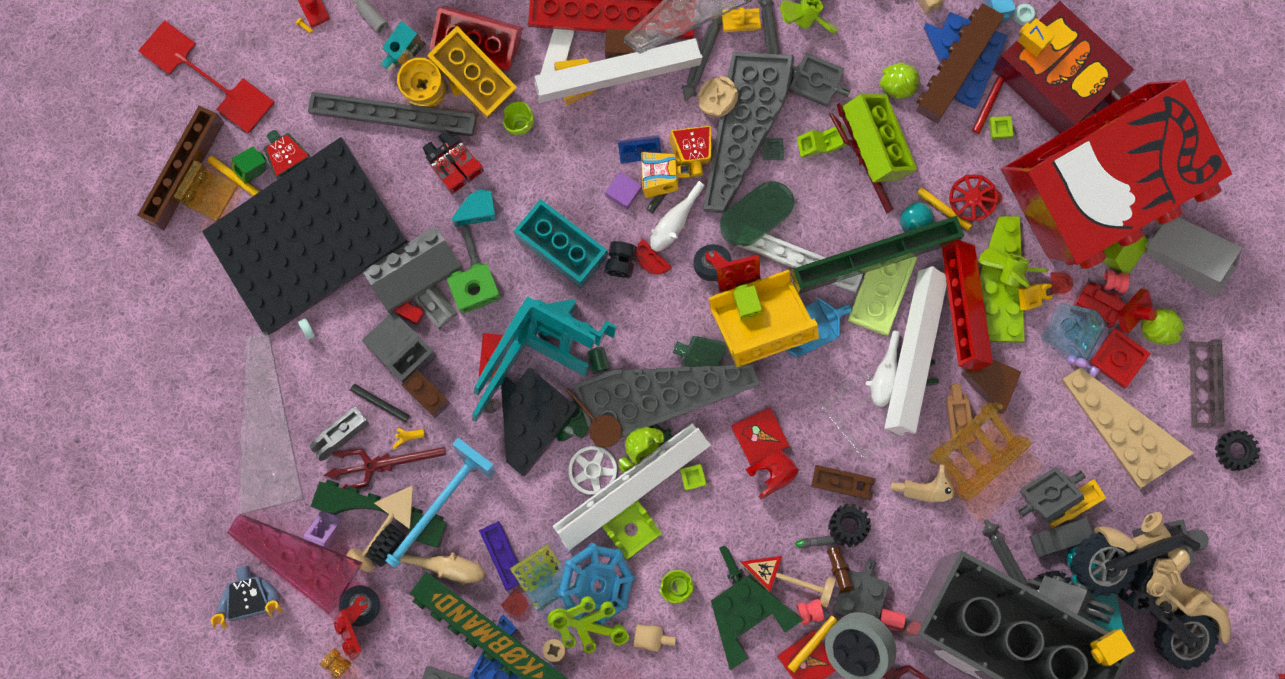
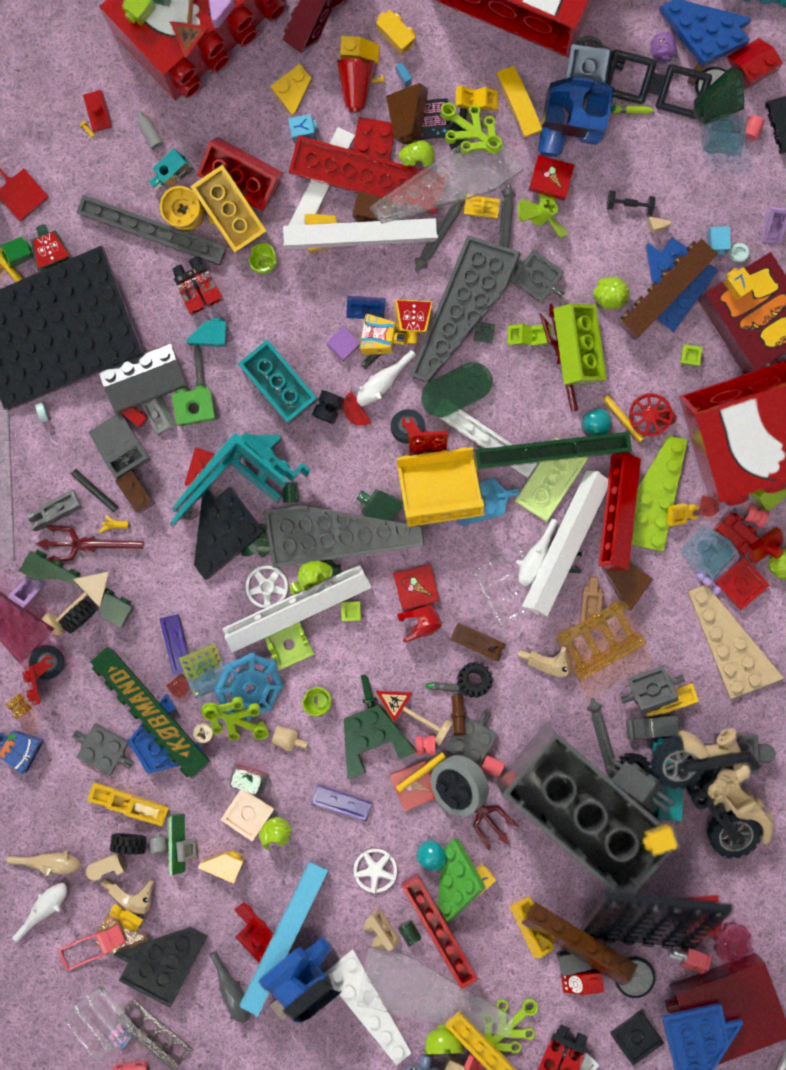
camera: 10 degrees right, 10 degrees up
(449, 567) = (128, 645): tan piece -> none
(472, 461) = (163, 560): medium azure tile -> none
(604, 430) = (283, 555): reddish brown piece -> none
(718, 96) = (445, 274): tan tile -> none
(747, 301) = (429, 469): lime brick -> none
(988, 105) = (685, 331): red bar -> none
(1013, 267) = (668, 485): lime piece -> none

